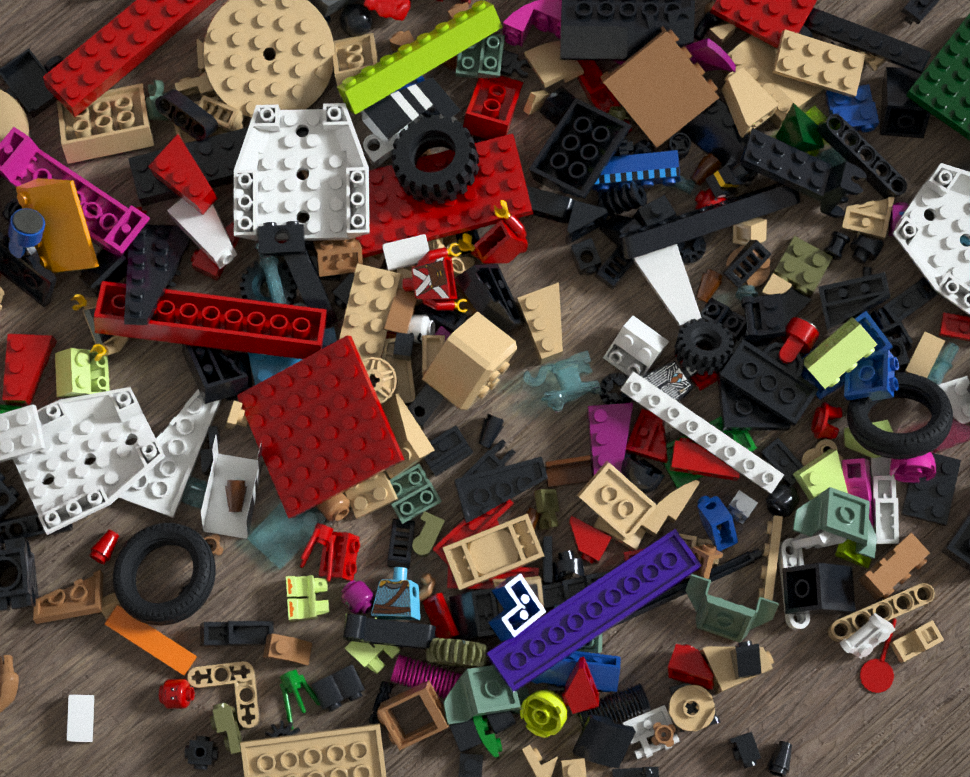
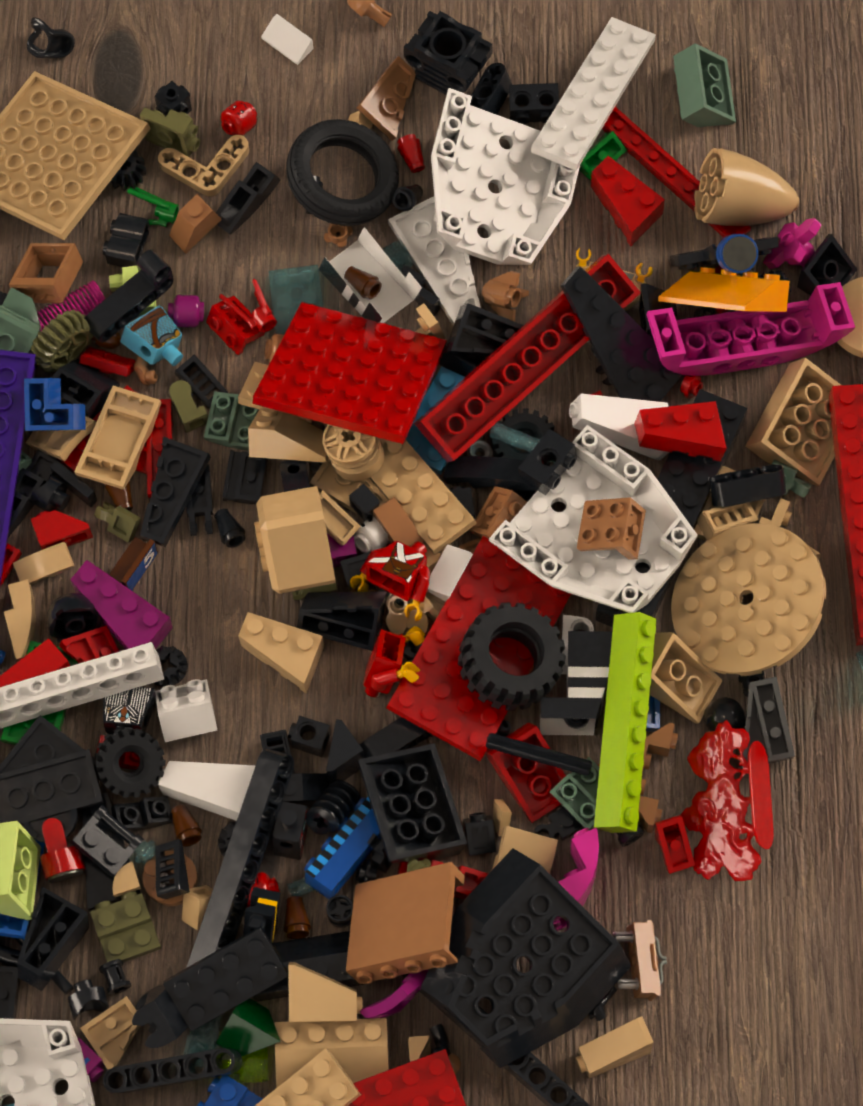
camera: 135 degrees right, 10 degrees down
(79, 373) = (578, 230): yellowish green slope -> none
(145, 516) = (406, 197): none -> black cone
(151, 640) = (285, 133): orange slope -> none
(168, 389) = (503, 294): none -> medium nougat brick
(296, 164) = (612, 525): none -> medium nougat bracket
(306, 588) = (227, 269): yellowish green hips -> none
(385, 689) = (87, 269): black axle -> none
(483, 96) = (538, 754): none -> black axle
(568, 378) = (211, 628): clear light blue animal -> none
(617, 500) = (63, 568): tan plate -> none

